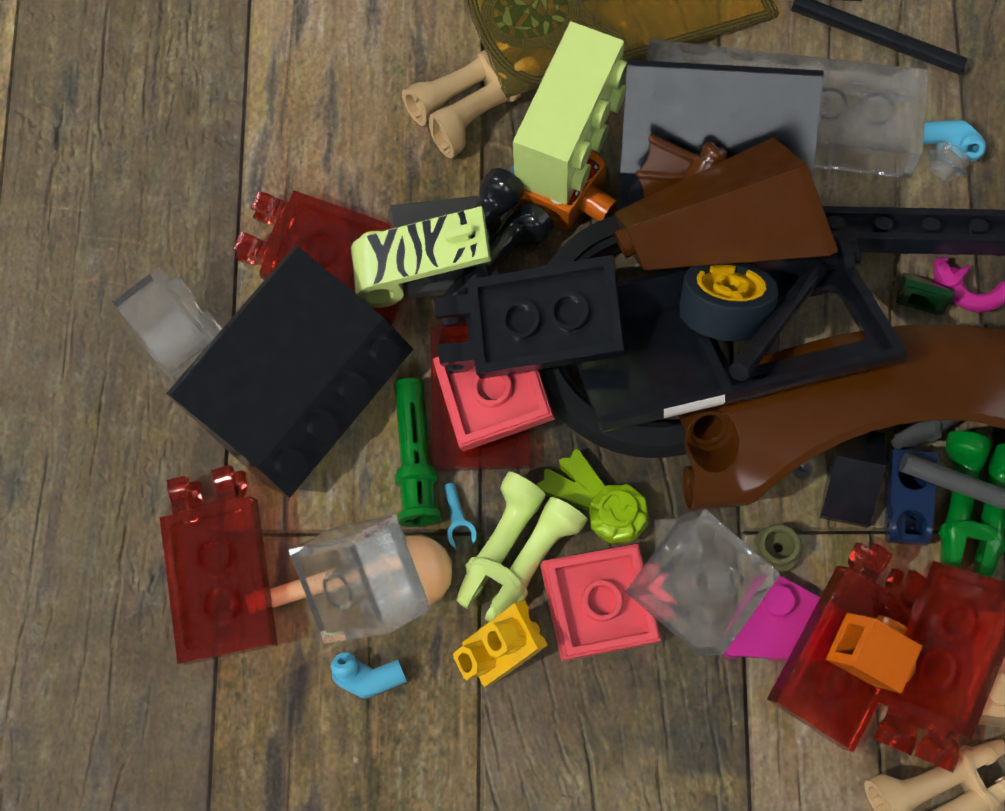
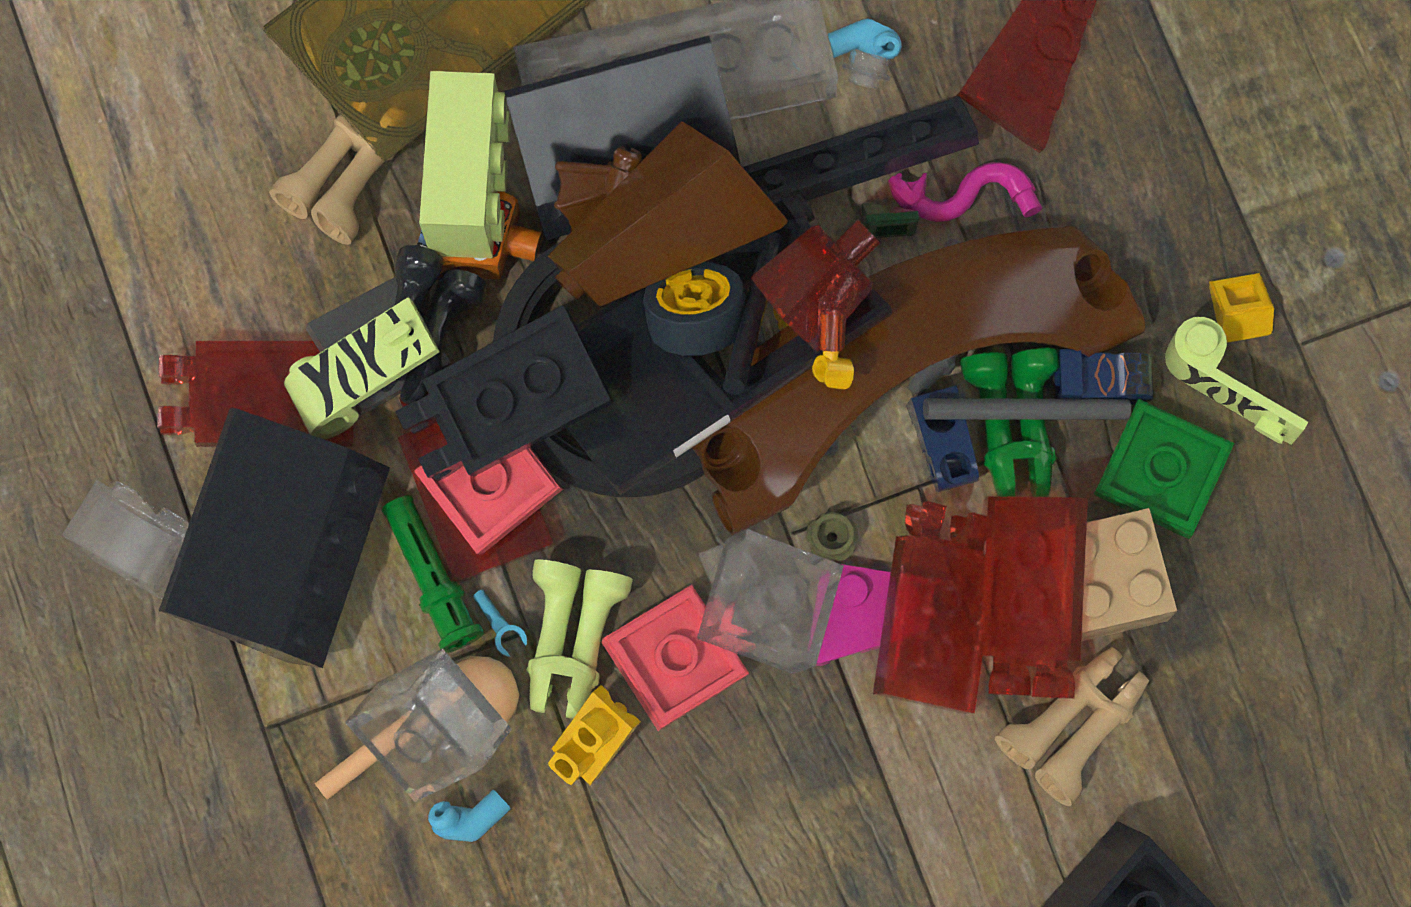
camera: 25 degrees left, 5 degrees up
(216, 570) = (274, 768): clear red tile -> none
(615, 511) = (656, 559): lime piece -> none
(843, 315) = (816, 289): none -> clear red torso
(854, 479) = (885, 442): black slope -> none
(875, 651) = (961, 608): orange brick -> none

